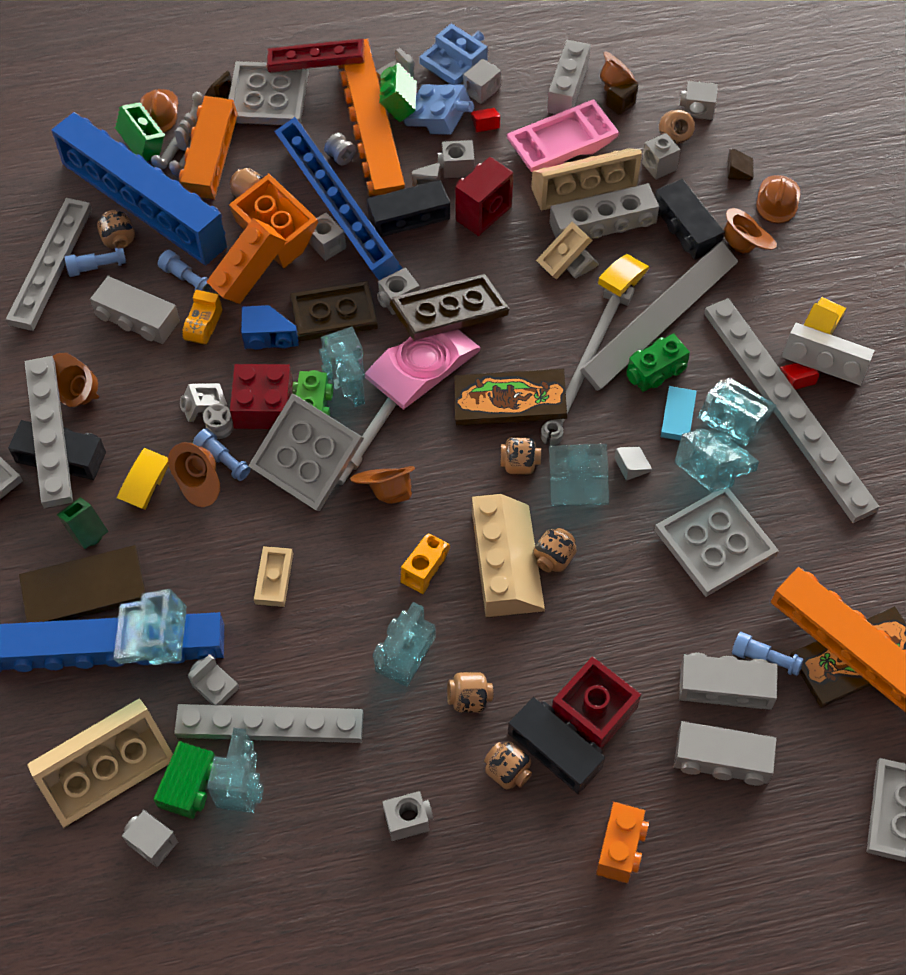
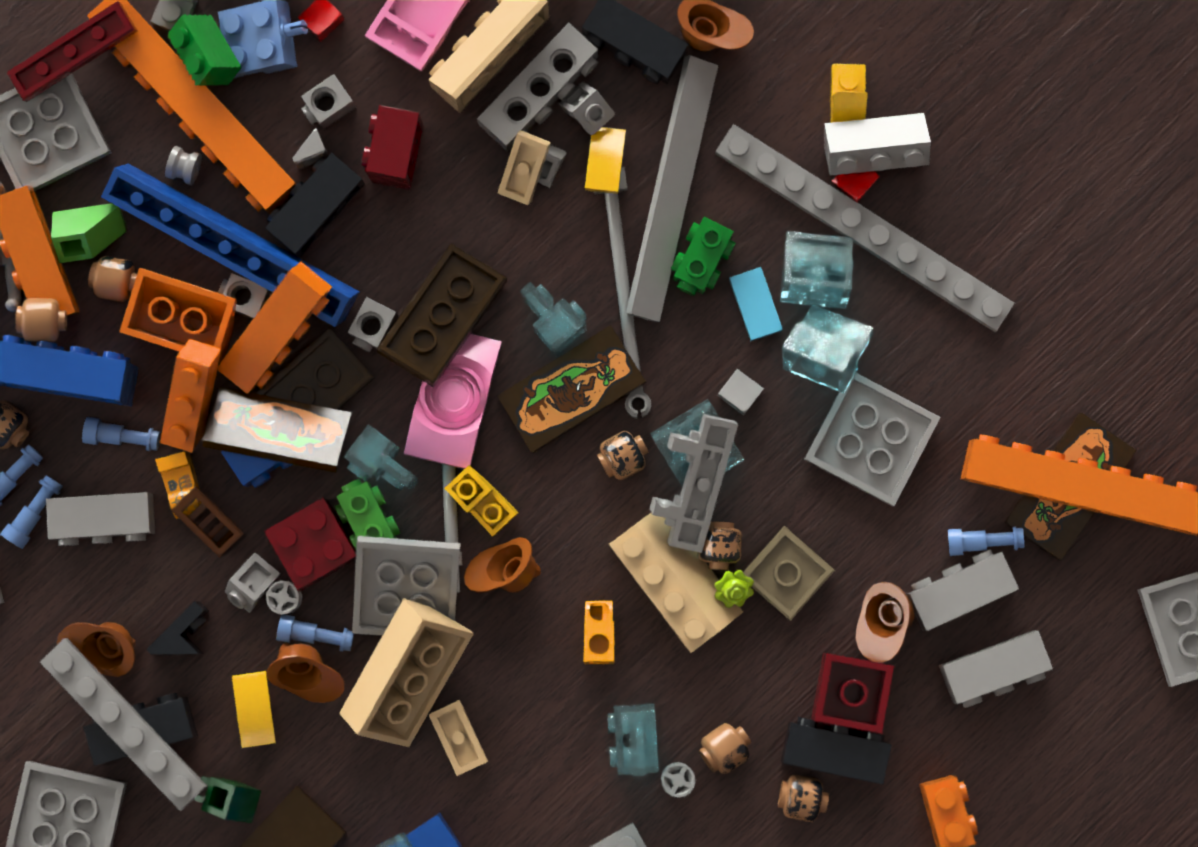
camera: 30 degrees left, 25 degrees up
(86, 289) = (29, 516): none -> medium blue piece
(125, 404) = (174, 638): none -> black slope
(185, 170) = (40, 319): none -> medium nougat head
(208, 367) = (227, 540): none -> reddish brown slope
(252, 151) = (85, 231): none -> bright green slope
(266, 507) = (405, 674): none -> tan slope
(286, 310) = (277, 429): none -> tile
(331, 250) = (274, 328): none -> orange brick
(399, 432) = (481, 500): none -> yellow slope
(421, 690) = (675, 784): none -> light grey wheel
(527, 340) = (557, 324): none -> clear light blue brick
(547, 581) = (734, 588): none -> lime plant
(581, 474) = (708, 457): none -> light grey hinge
(595, 597) = (788, 573): none -> dark tan plate
(631, 240) = (587, 108): none -> light grey bracket
(655, 665) = (883, 622): none -> piece

